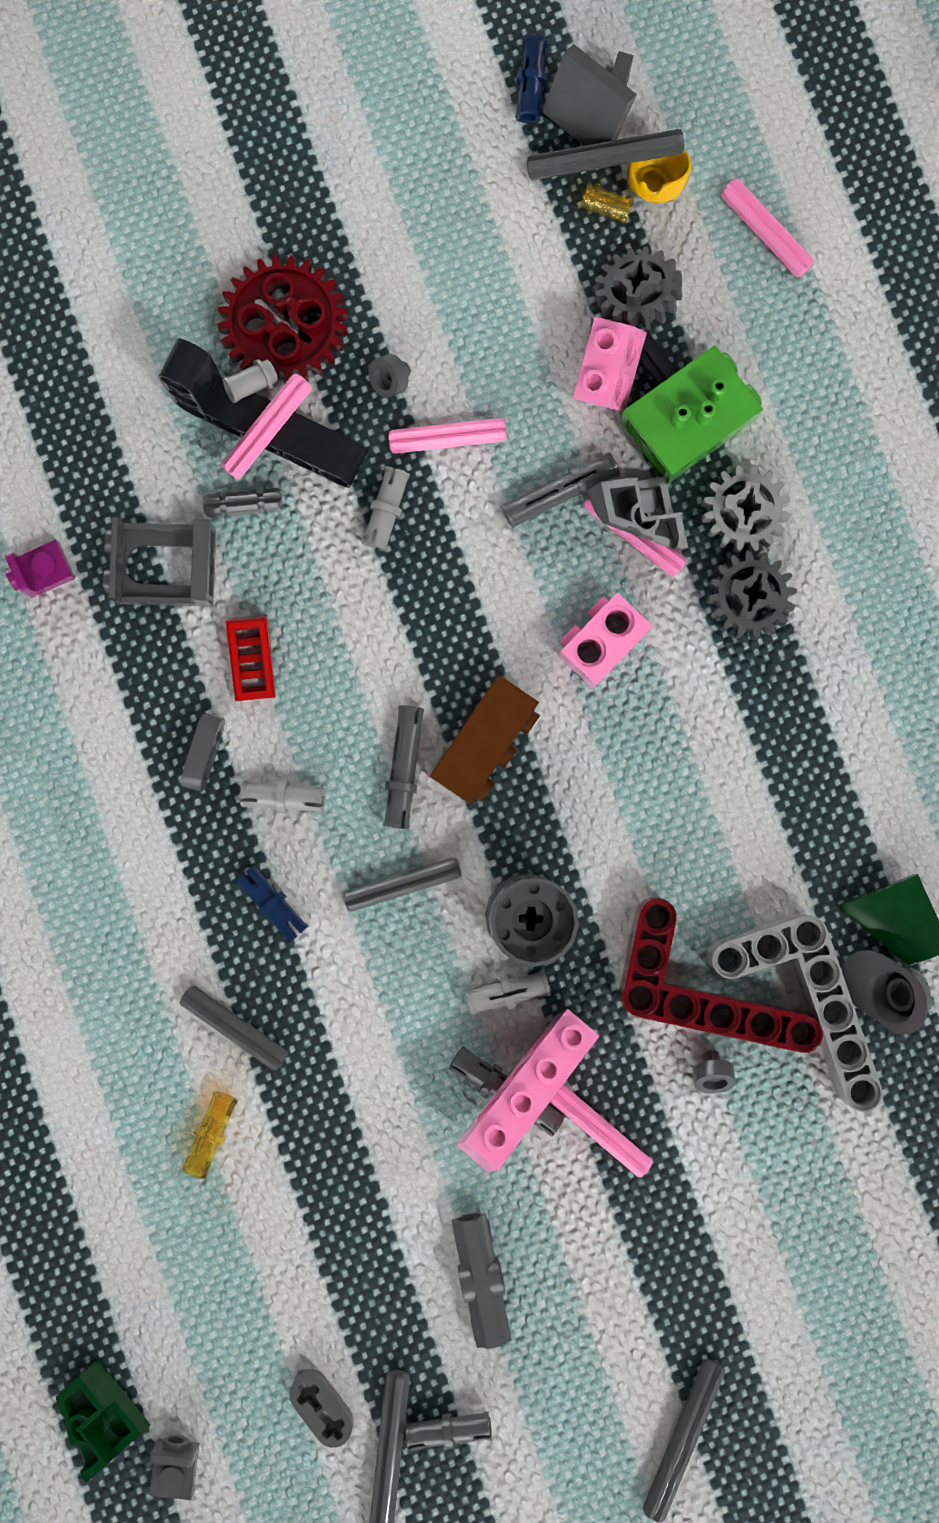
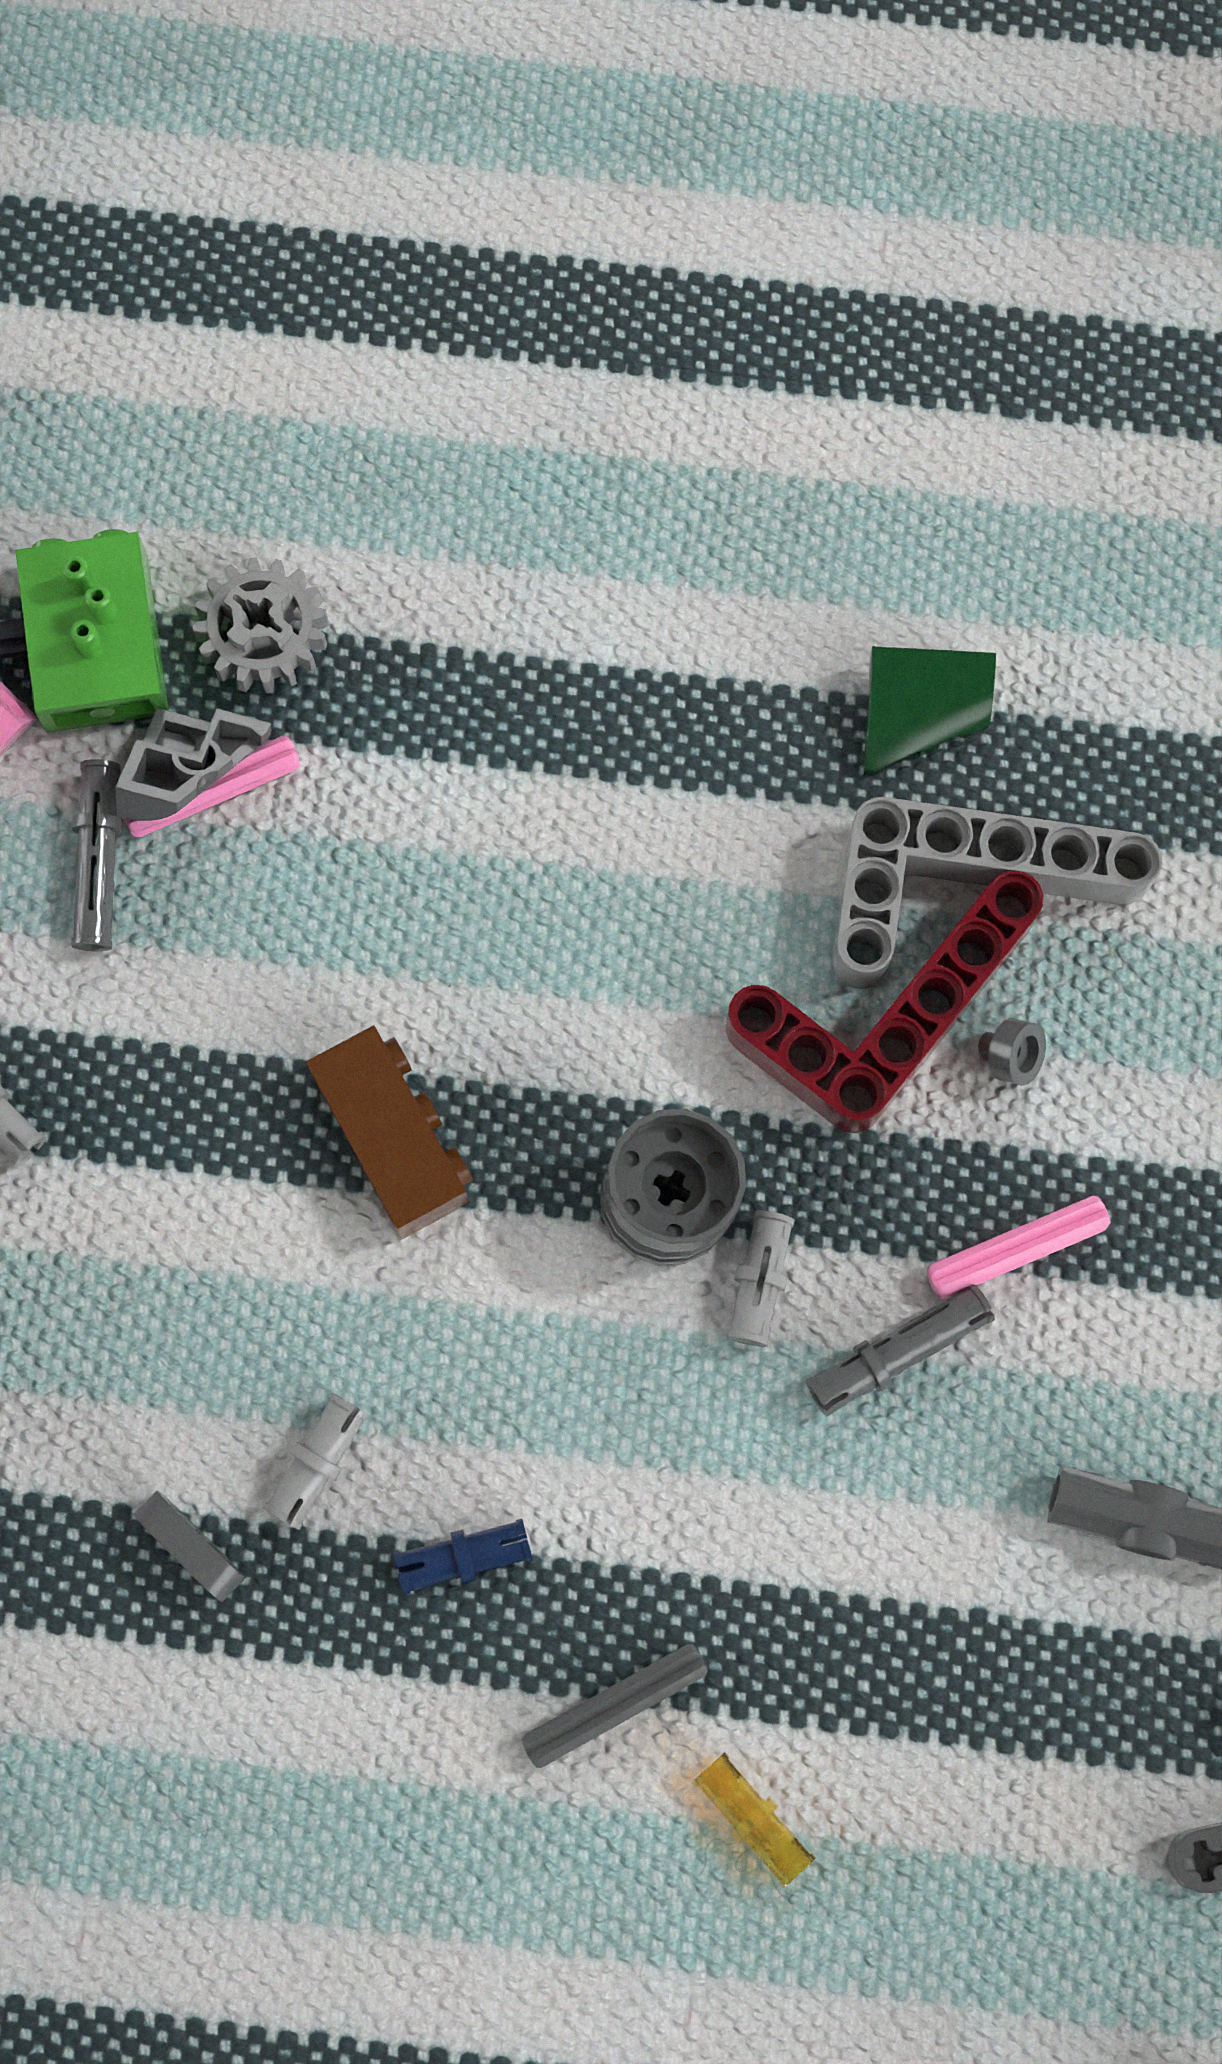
camera: 65 degrees left, 10 degrees down
(237, 624) = (38, 1388): red slope -> none
(402, 884) = (531, 1353): dark grey axle -> none
(403, 769) = (377, 1273): dark grey pin -> none
(527, 1091) = (911, 1312): bright pink brick -> none
(611, 646) = (347, 896): bright pink brick -> none
(735, 591) = (383, 649): dark grey gear -> none
(887, 991) = (1011, 762): dark grey piece -> none

